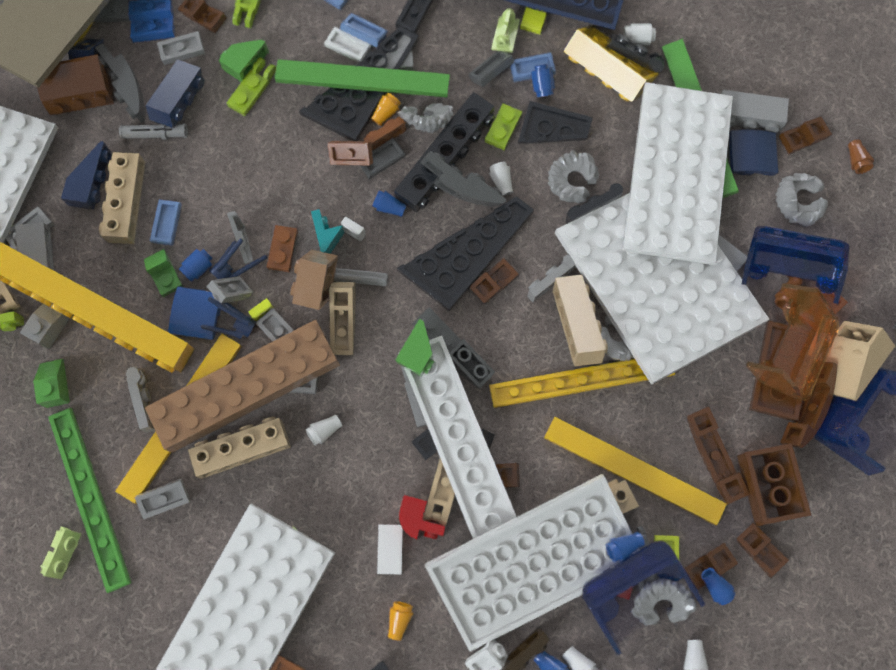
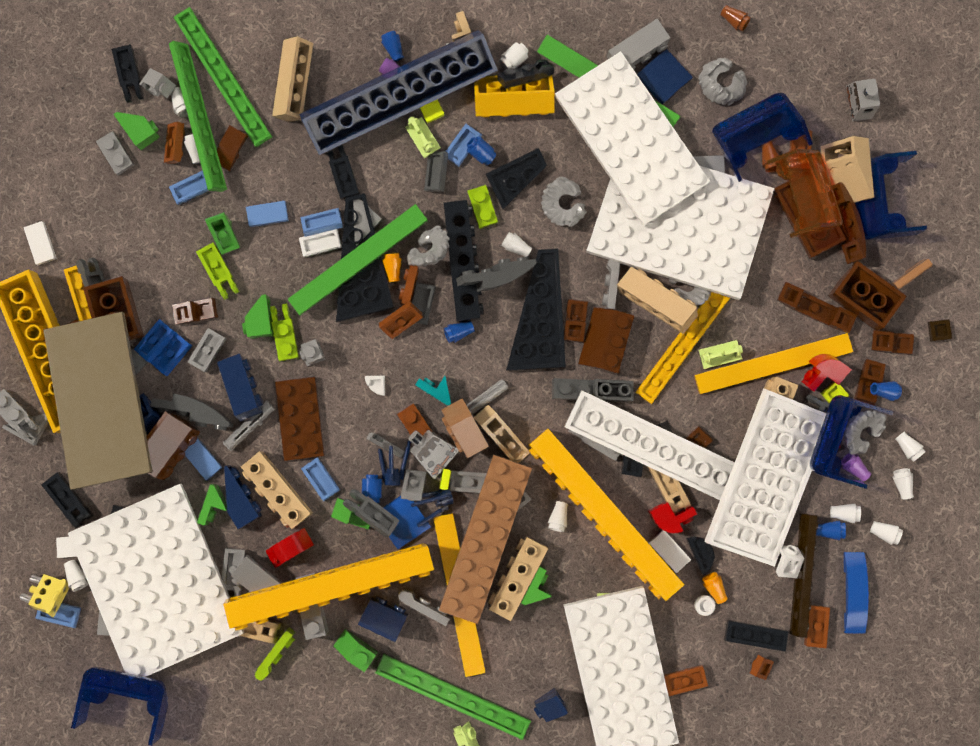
camera: 45 degrees left, 10 degrees up
(62, 162) = (213, 500): none -> bright green slope
(86, 249) = (289, 547): none -> red brick
(93, 125) = (202, 460): none -> medium blue tile
(97, 375) = (383, 618): none -> dark blue slope
(157, 584) = (550, 706): none -> dark blue slope
(162, 498) = (500, 653): light grey plate -> none
(173, 280) = (372, 513): none -> dark grey hinge
(197, 161) = (299, 418): none -> reddish brown plate
(241, 471) = (534, 593): none -> bright green slope
(254, 116) = (311, 352): none -> light grey brick
(271, 276) = (432, 451): none -> light grey torso
(283, 188) = (376, 384): none -> white tile
(353, 229) = (451, 370): white tile -> none
(362, 461) = (607, 516): none -> yellow brick
(375, 627) = (704, 605): none -> white tile
(416, 578) = (702, 553): none -> black plate
(417, 352) = (579, 416): bright green slope -> none
(505, 319) = (606, 340): none -> reddish brown slope
(593, 420) = (720, 354): none -> yellowish green hinge
(594, 203) = (594, 209): black plate -> none
(623, 546) = (814, 421): blue cone -> none
(627, 631) = (855, 466): none -> medium lavender cone
(680, 513) = (825, 366): none -> brick
(805, 135) = (687, 33): reddish brown slope -> none
(817, 580) = (939, 330): none -> dark brown tile
(835, 501) = (912, 273): none -> medium nougat tile

